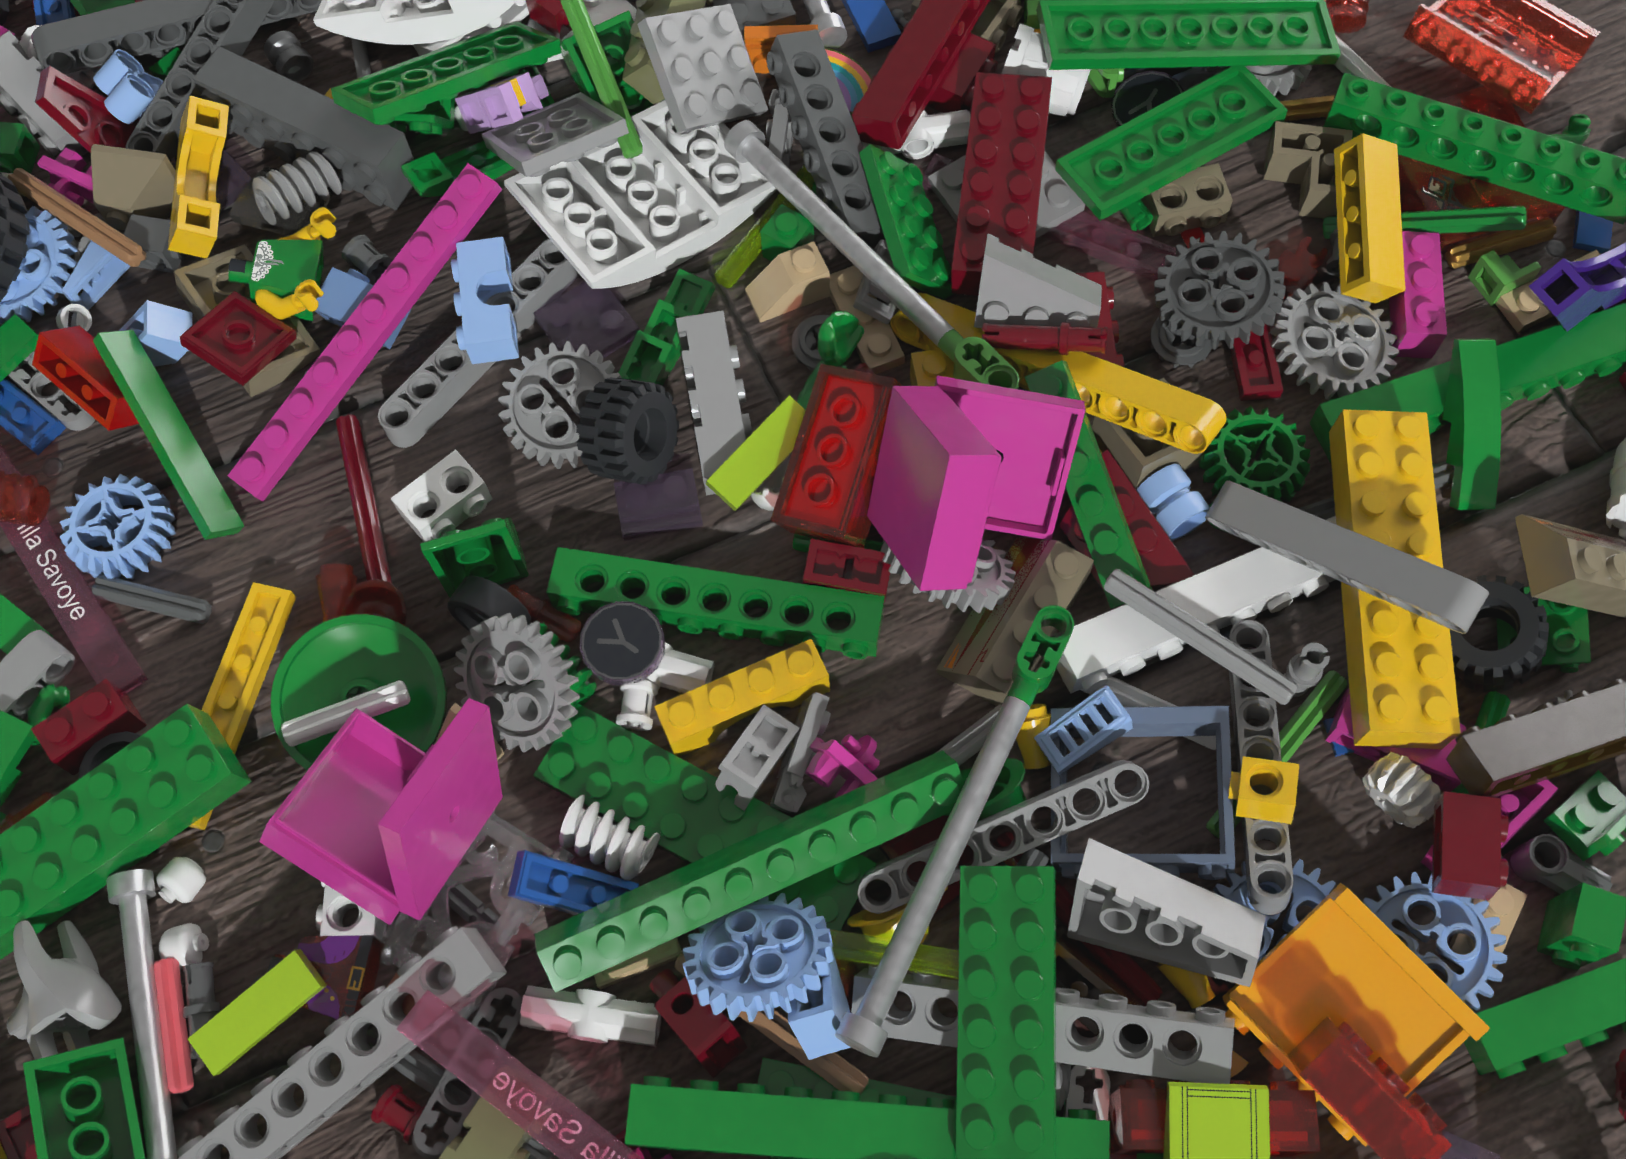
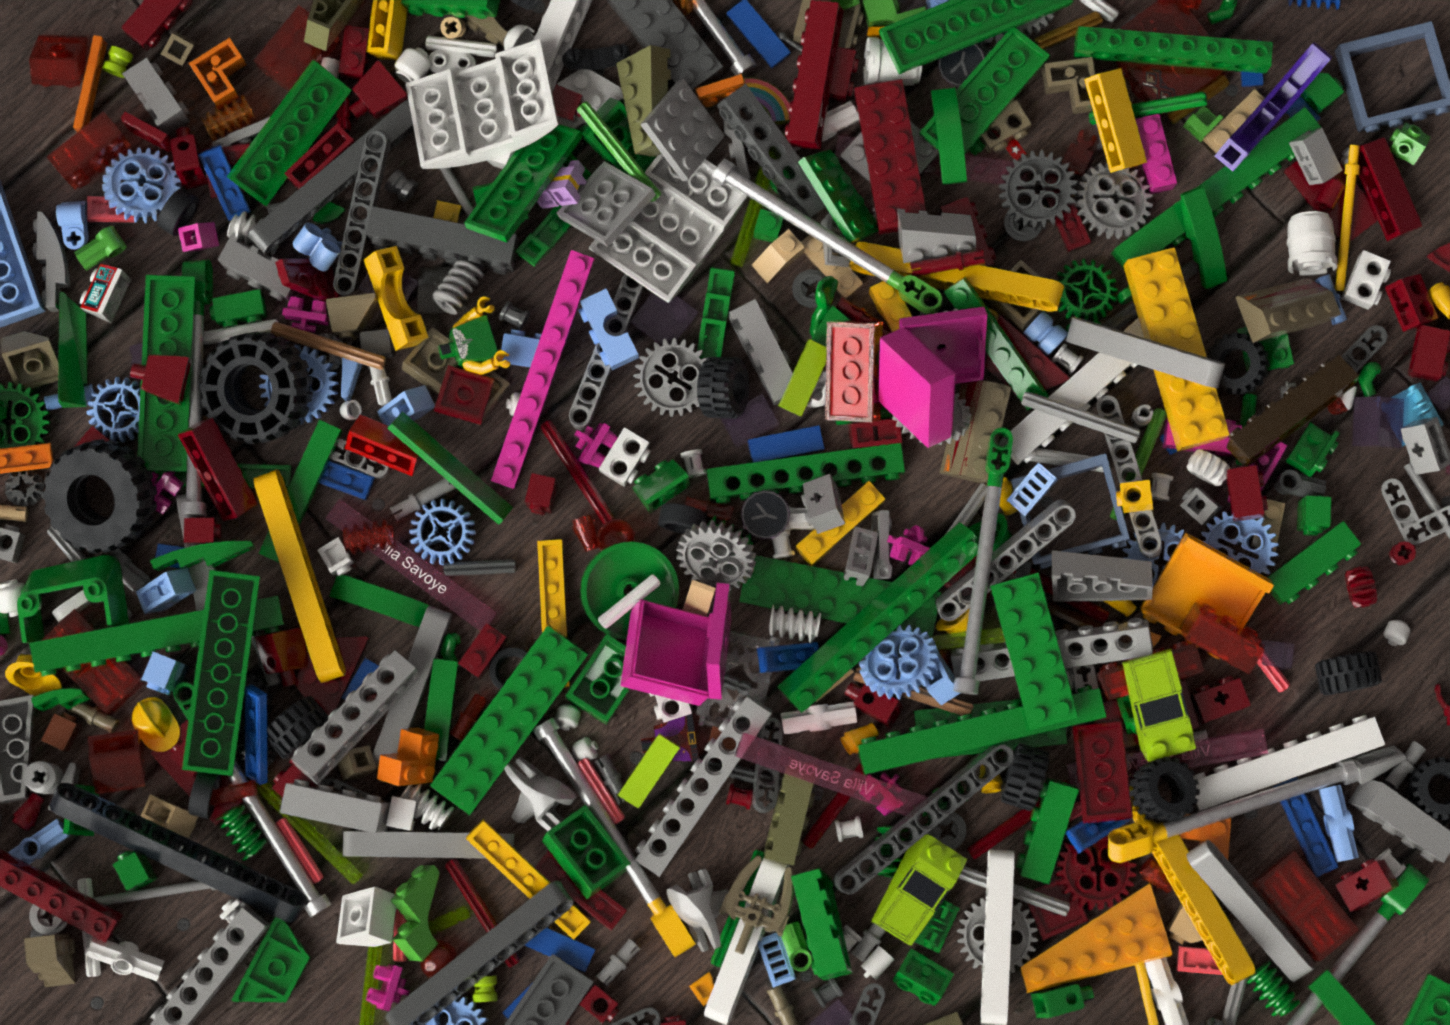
camera: 20 degrees left, 15 degrees up
(78, 477) = (423, 497): none -> light grey pin
(135, 291) = (381, 385): none -> white axle
(227, 837) = (598, 684): none -> green slope
(285, 509) = (541, 494): none -> dark red brick
(392, 477) = (601, 435): none -> dark pink hips
(544, 538) = (693, 463): none -> white bush
(638, 1067) = (853, 738): none -> yellow cone
(702, 550) = (786, 444): none -> blue tile
(721, 651) = (822, 504): none -> light grey brick
(1100, 174) = (949, 136): none -> green slope
(1199, 550) = (1067, 358): none -> white bush
(1310, 798) = (1160, 486): none -> white bush
(1320, 484) = (1124, 296): none -> green tile
(1369, 832) = (1203, 515): none -> light grey brick

